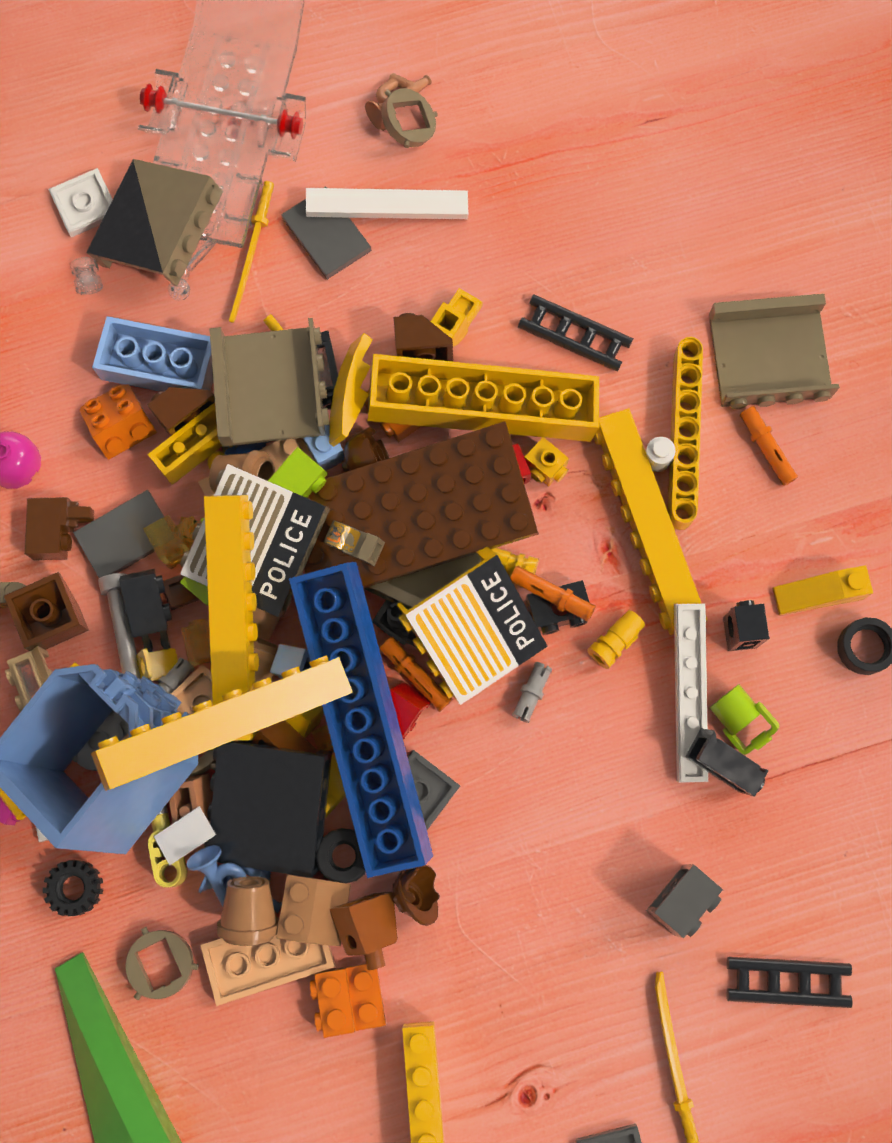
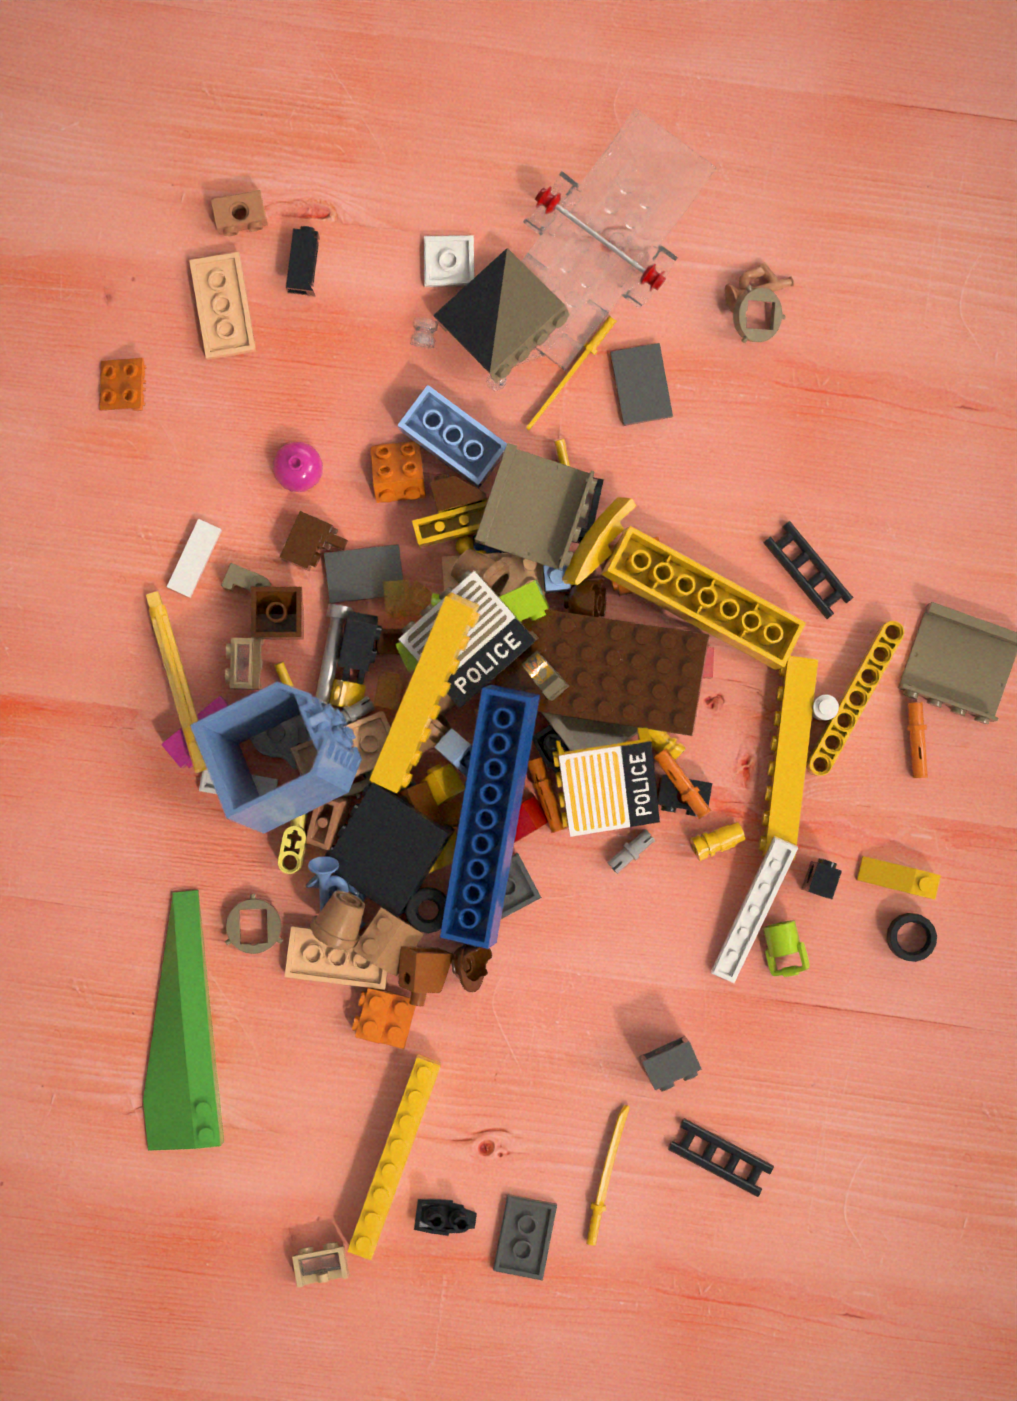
camera: 15 degrees right, 10 degrees up
(55, 888) = (200, 849): black tyre -> none
(184, 835) = (314, 840): white sticker -> none
(219, 724) = (387, 782): yellow brick -> none
(386, 203) = (704, 383): white tile -> none
(421, 338) = (674, 524): reddish brown slope -> none
(457, 315) = (714, 514): yellow brick -> none
(546, 462) = (730, 672): yellow brick -> none
(726, 763) = (754, 976): black window -> none

